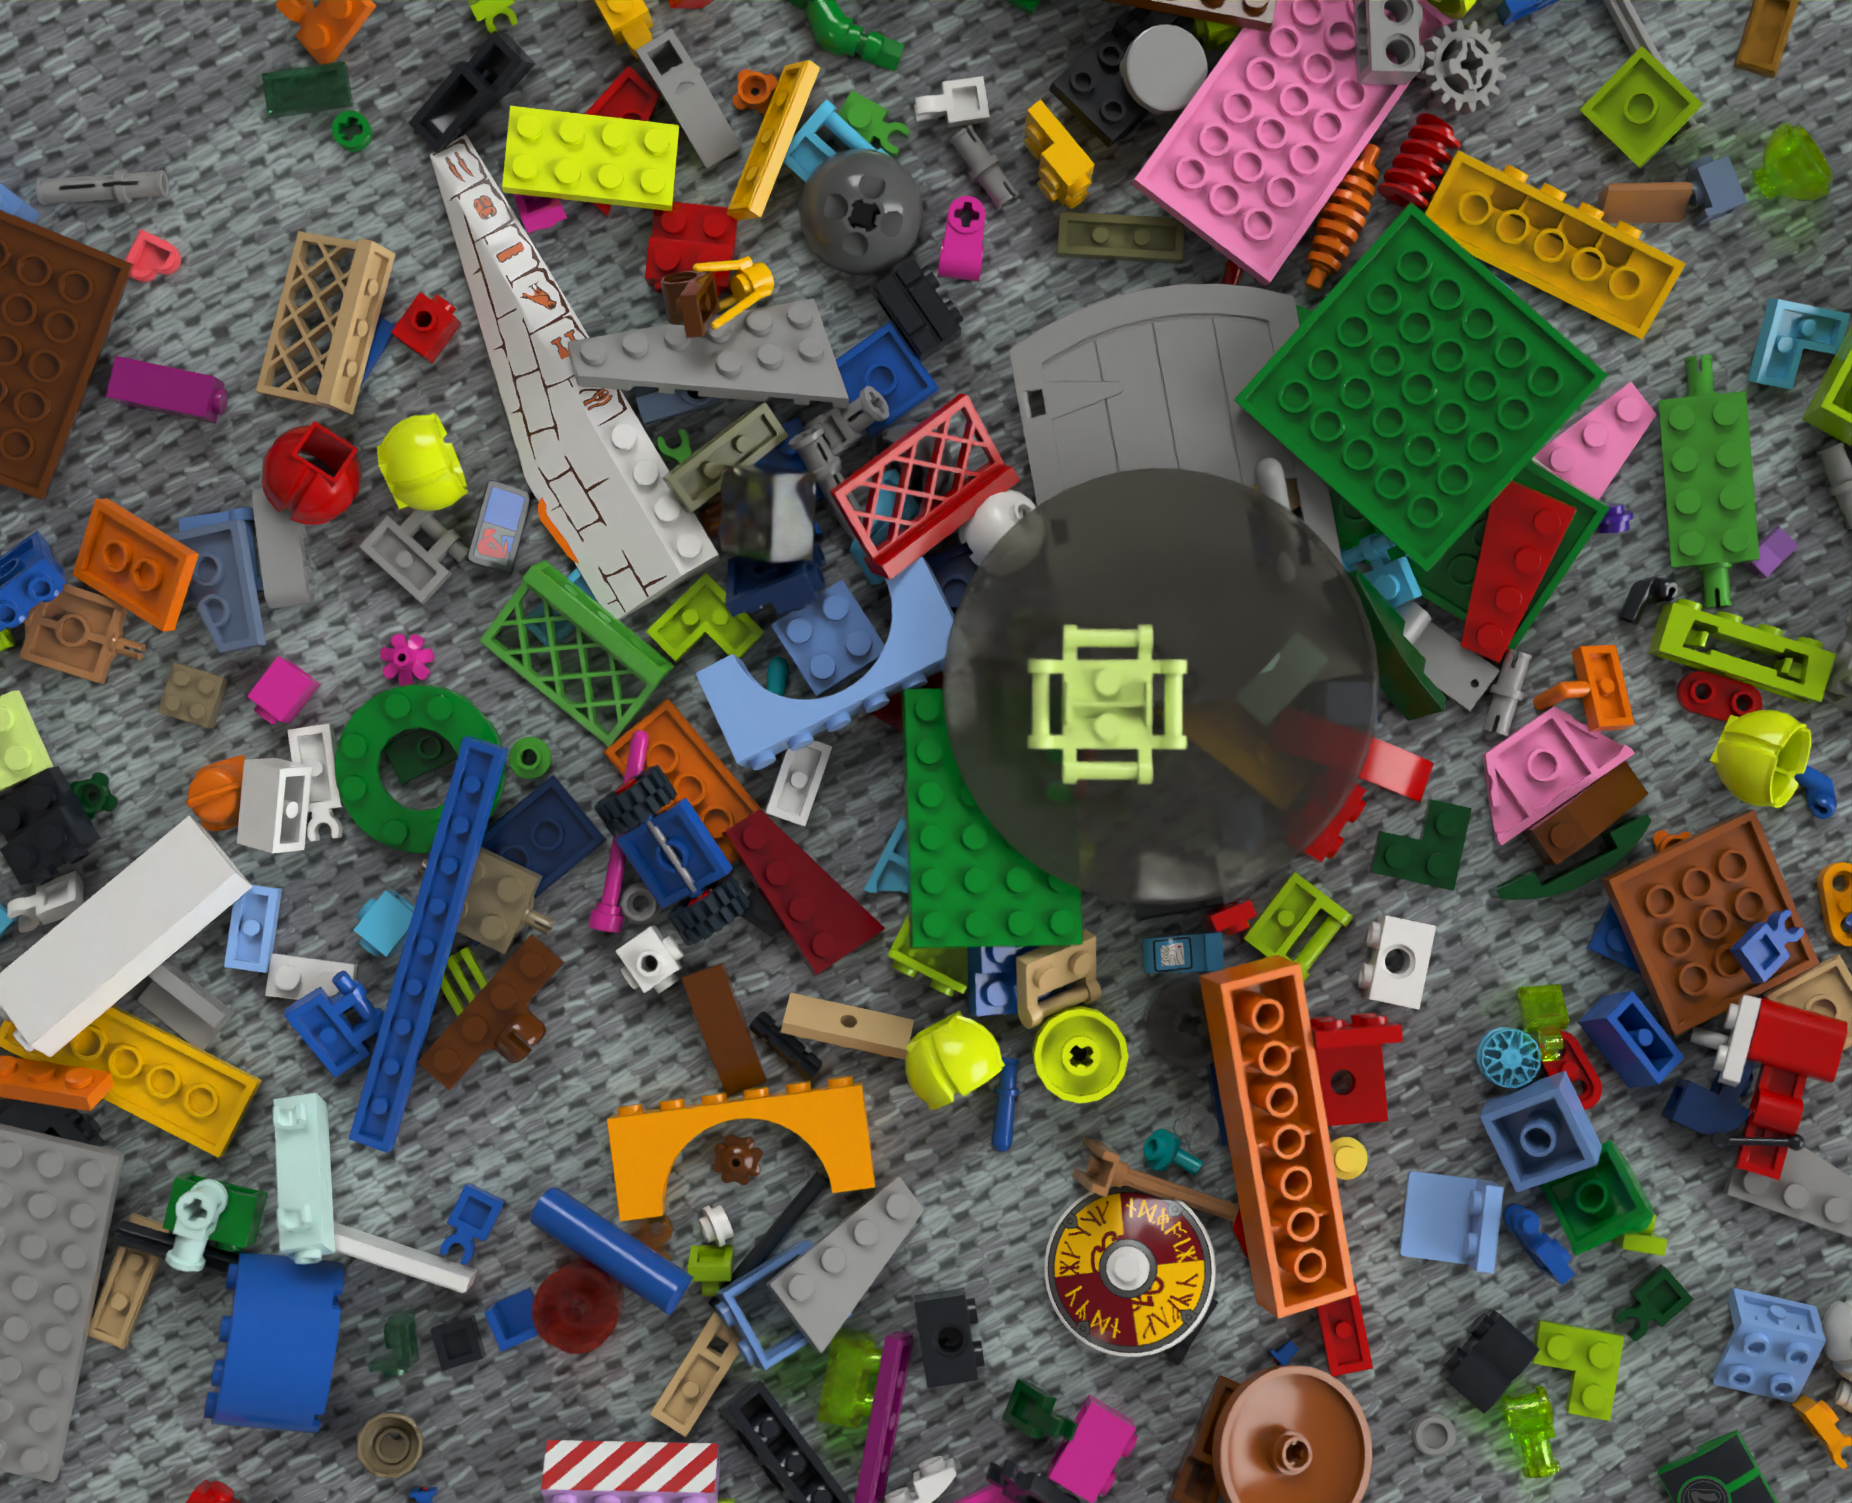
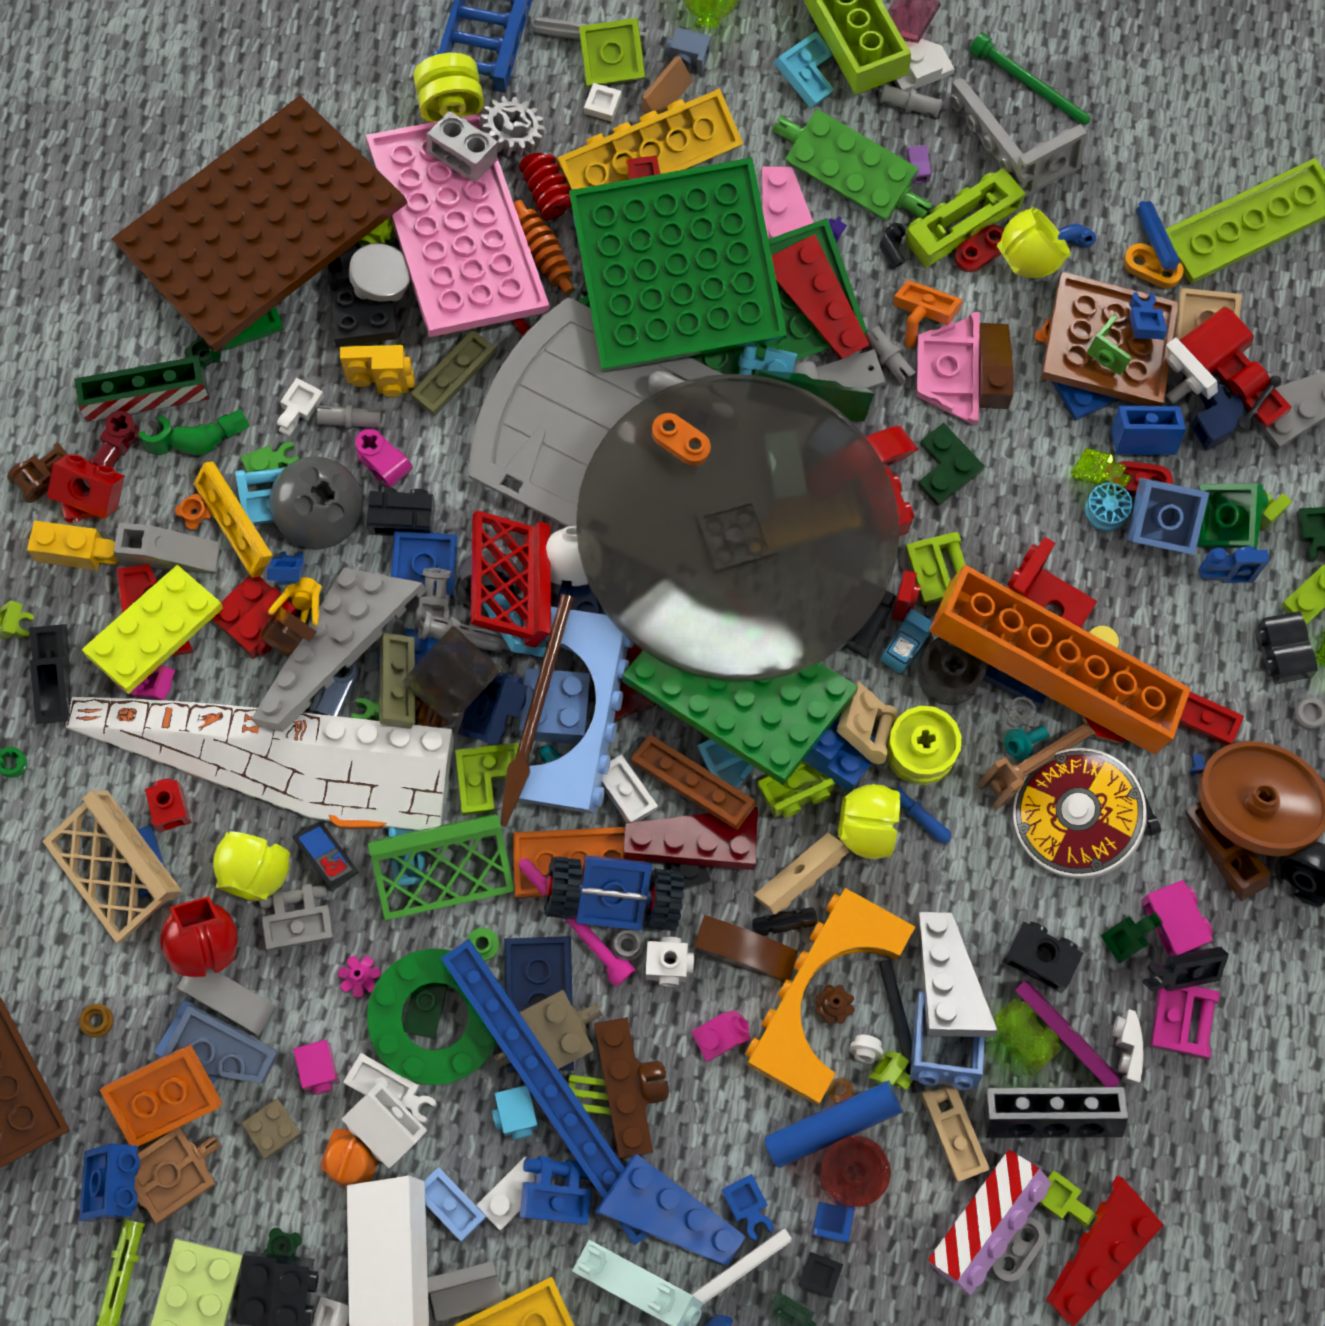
camera: 55 degrees left, 15 degrees down
(155, 429) = (87, 1015): none -> pearl gold plate
(167, 390) = (69, 995): magenta brick -> none
(399, 1143) = (660, 1207): none -> blue wing
(621, 1069) = (722, 1034): none -> dark pink bracket
(726, 658) = (519, 769): none -> reddish brown piece
(762, 243) = (286, 568): none -> blue plate
(857, 844) = (693, 782): none -> dark orange plate
(1106, 704) = (725, 556): yellowish green brick -> none
(1208, 553) = (678, 440): none -> orange plate
(1415, 944) = (1001, 509): white brick -> none
(1451, 1219) = (1185, 606): light blue bracket -> none
(1512, 261) = (642, 167): none -> red tile
(1572, 143) = (602, 102): none -> white plate
(1619, 842) = (1023, 358): dark green slope -> none
(1683, 934) = (1108, 353): none -> bright green bracket

